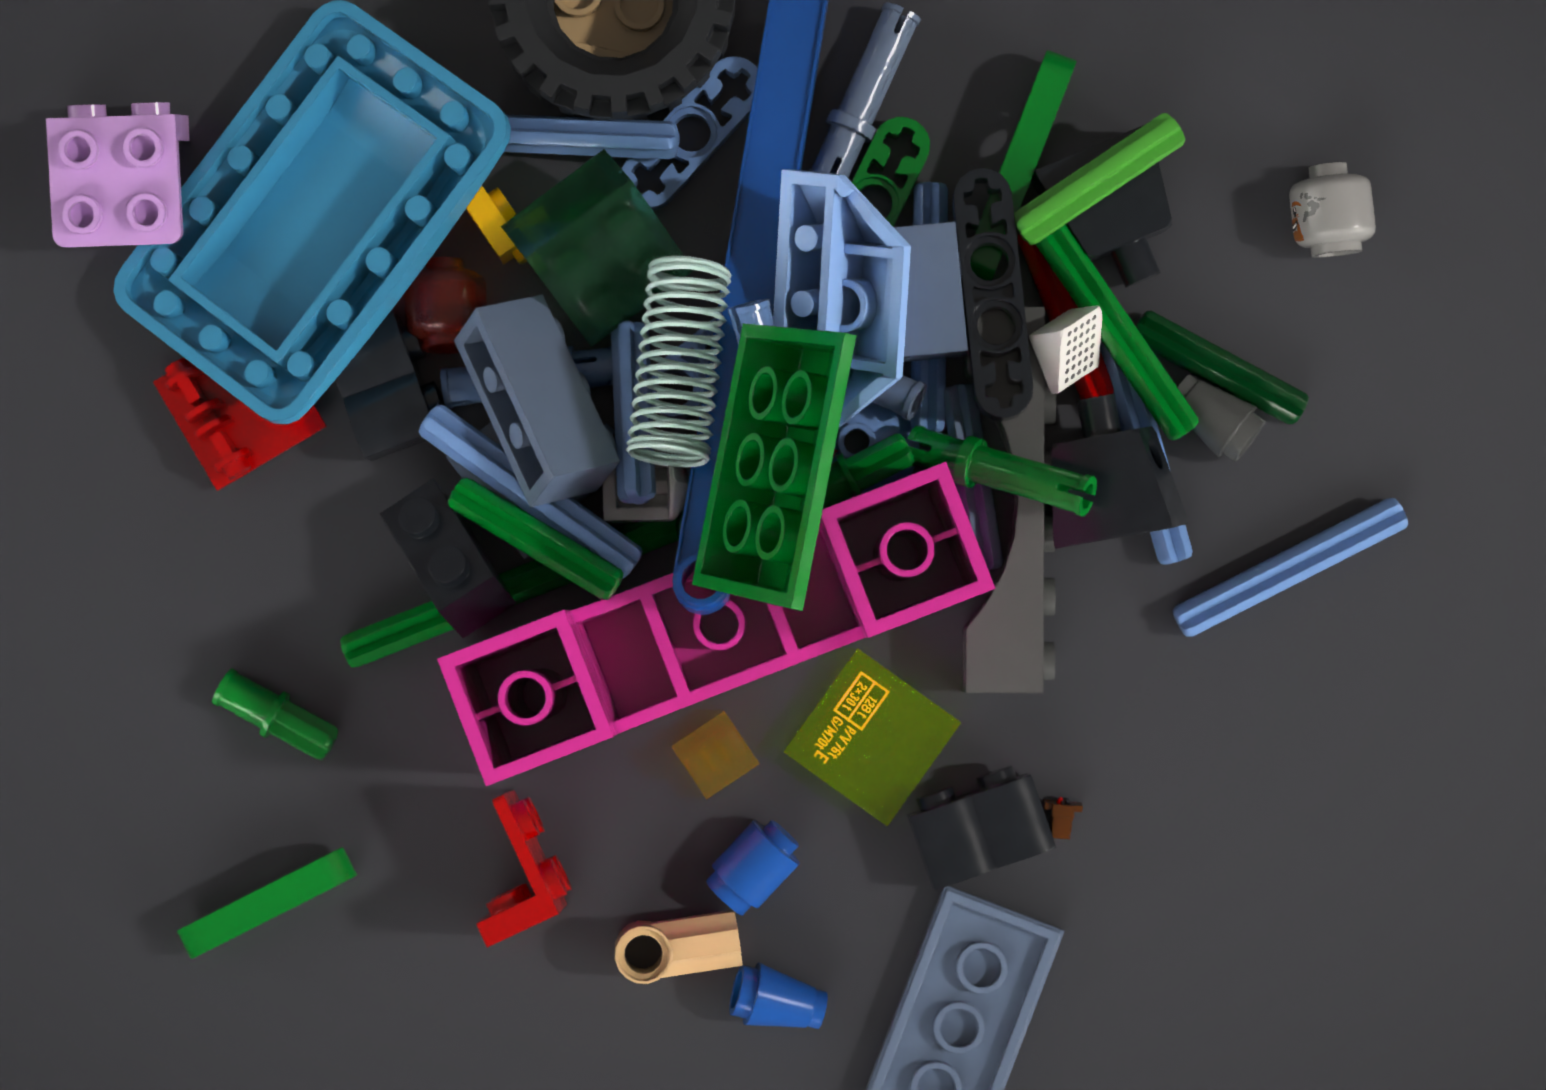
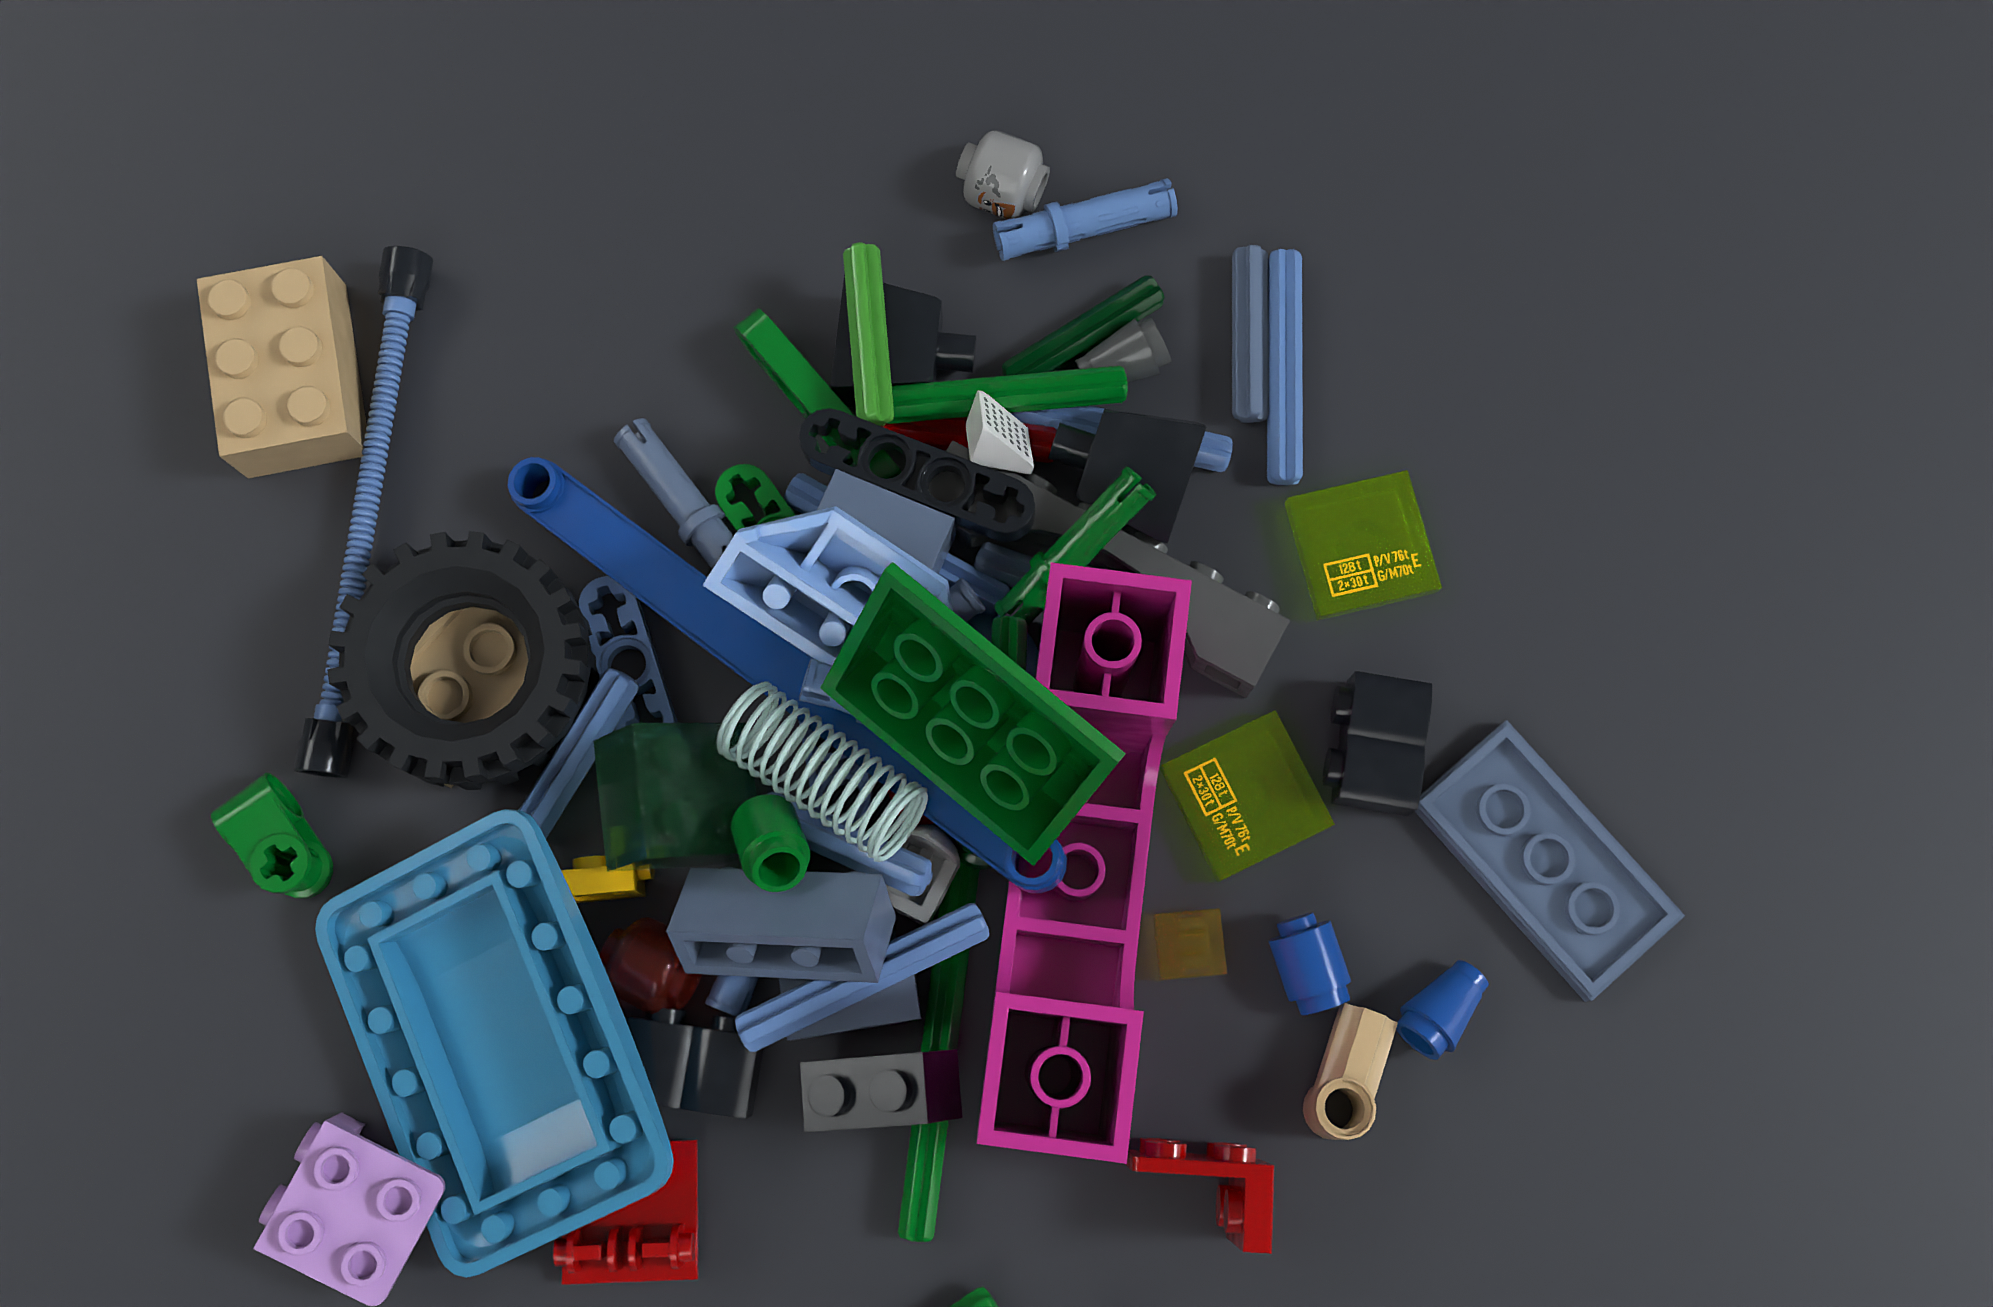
camera: 65 degrees left, 10 degrees down
(535, 538) = (908, 995): green axle -> none
(596, 352) = (770, 842): none -> green brick
(1061, 816) = (1400, 666): reddish brown piece -> none
(1158, 723) = (1362, 545): none -> clear neon green tile
(1304, 519) = (1250, 334): none -> sand blue axle
(1331, 309) = (1076, 221): none -> medium blue pin

